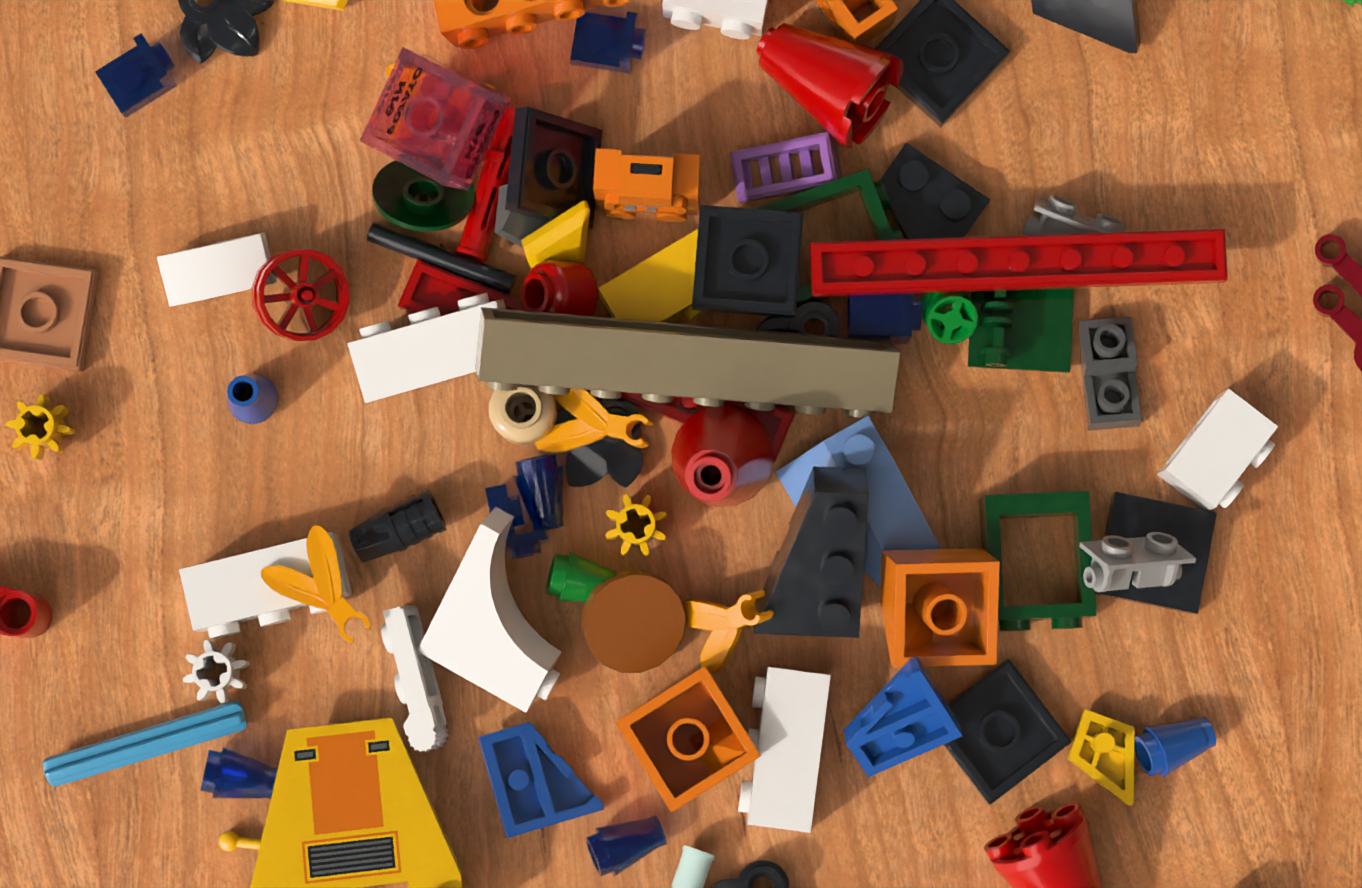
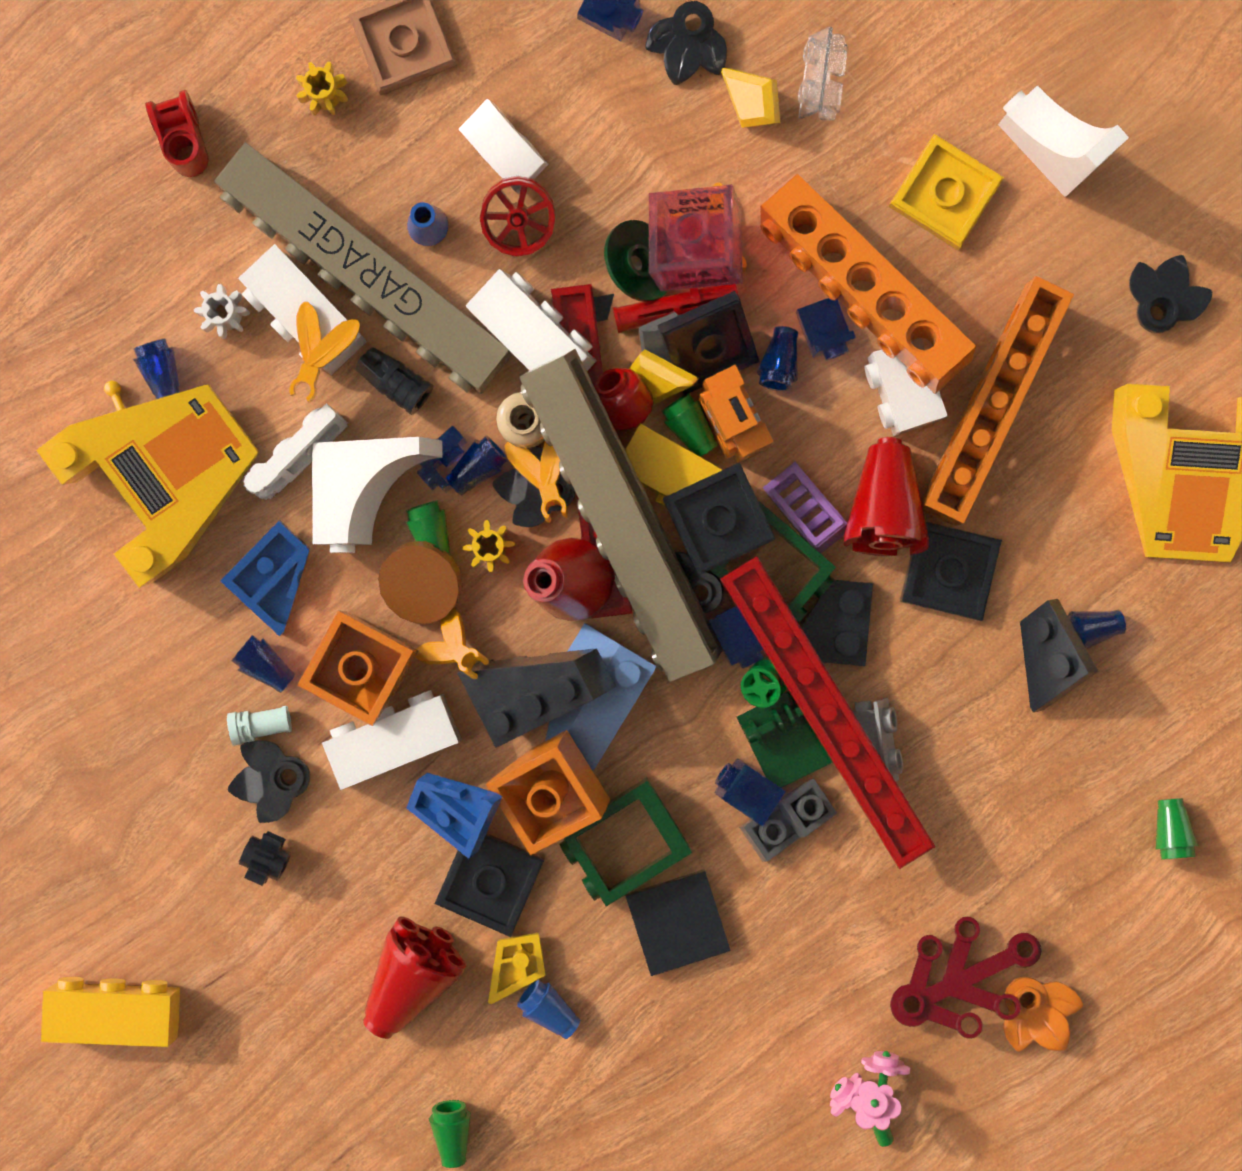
camera: 60 degrees right, 5 degrees up
(145, 743) = (145, 291): dark azure axle -> none
(259, 493) = (362, 268): none -> dark tan brick
(441, 257) = (602, 300): black bar -> none
(616, 108) = (779, 362): none -> clear blue cone
(627, 239) = (690, 424): none -> green cone
(1054, 396) = (748, 791): none -> clear blue bracket
(1152, 558) = (668, 923): light grey hinge -> none
(1219, 451) = (774, 929): white brick -> none

